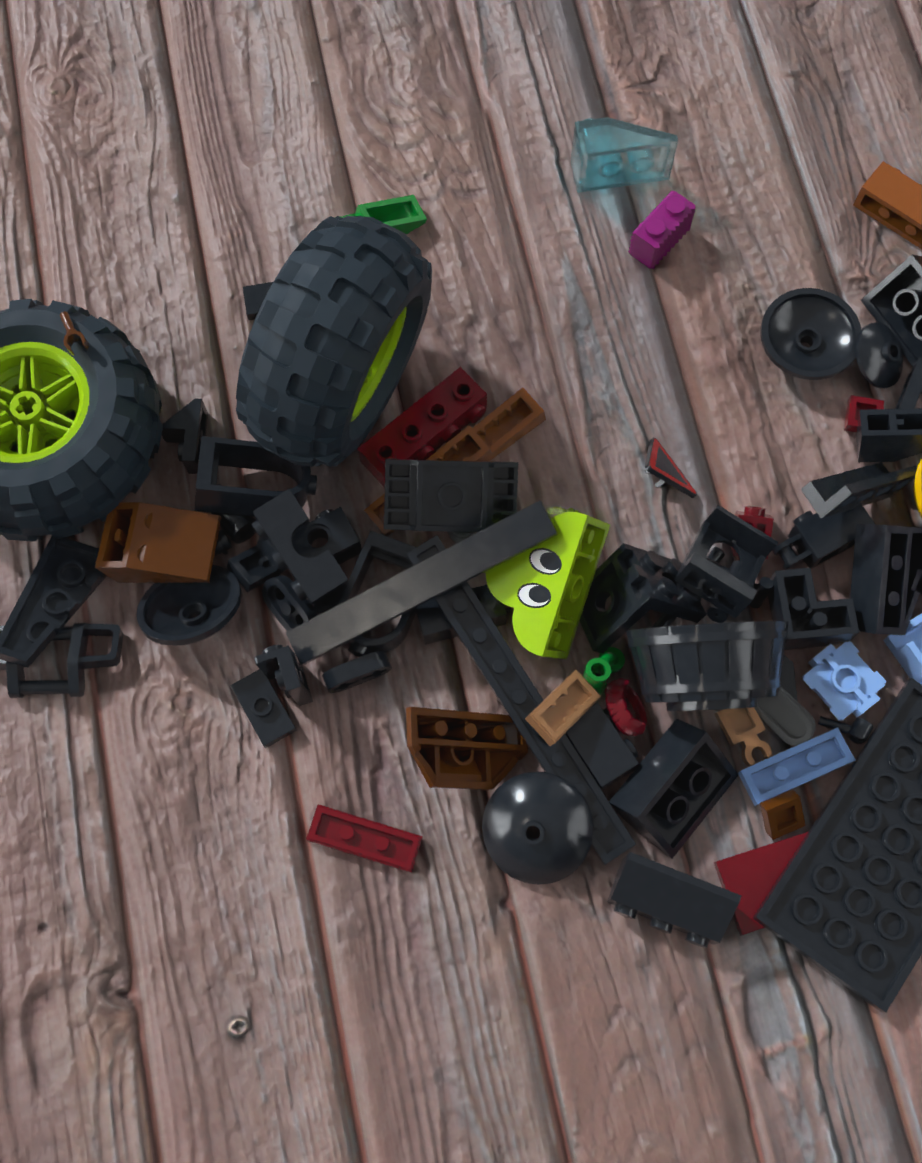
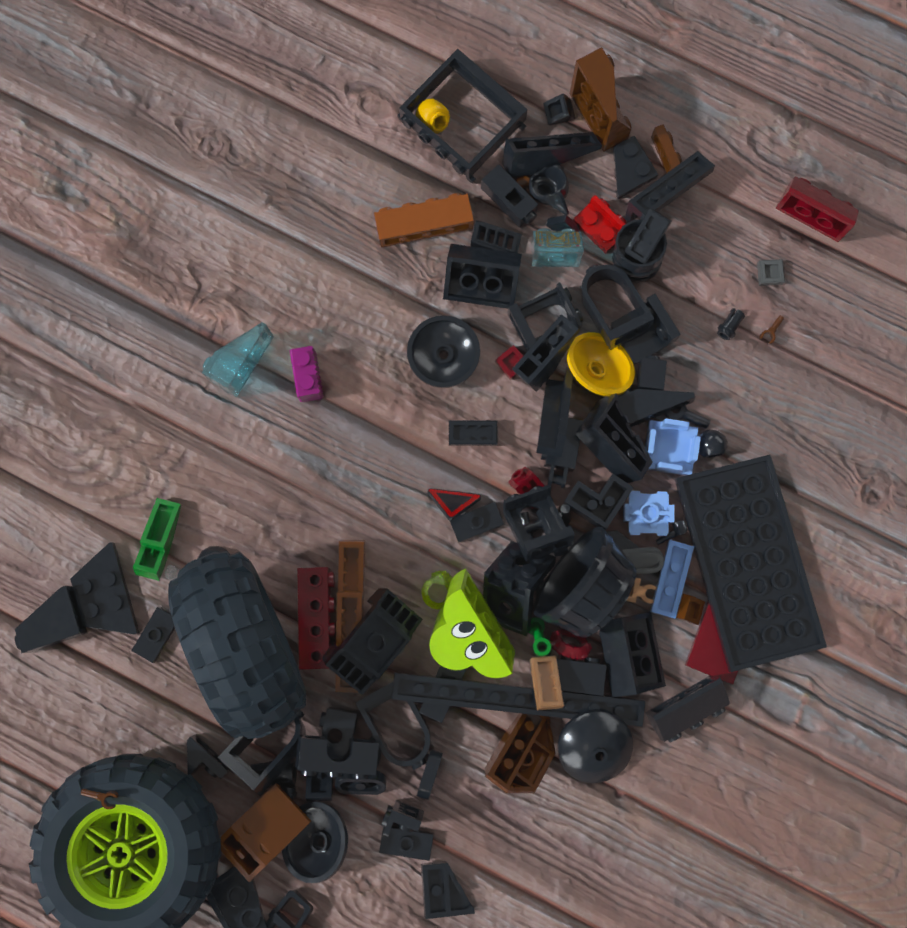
camera: 50 degrees left, 10 degrees up
(210, 196) = (51, 623): none -> black slope
(240, 788) = (442, 892): none -> black wing
(278, 222) = (103, 594): none -> black wing
(364, 838) = (524, 844): dark red tile -> none
(422, 582) = (416, 705): black tile -> none
(665, 511) = (476, 522): none -> black plate
(754, 433) = (473, 433): none -> black plate
(879, 355) = (486, 324): black dish -> none

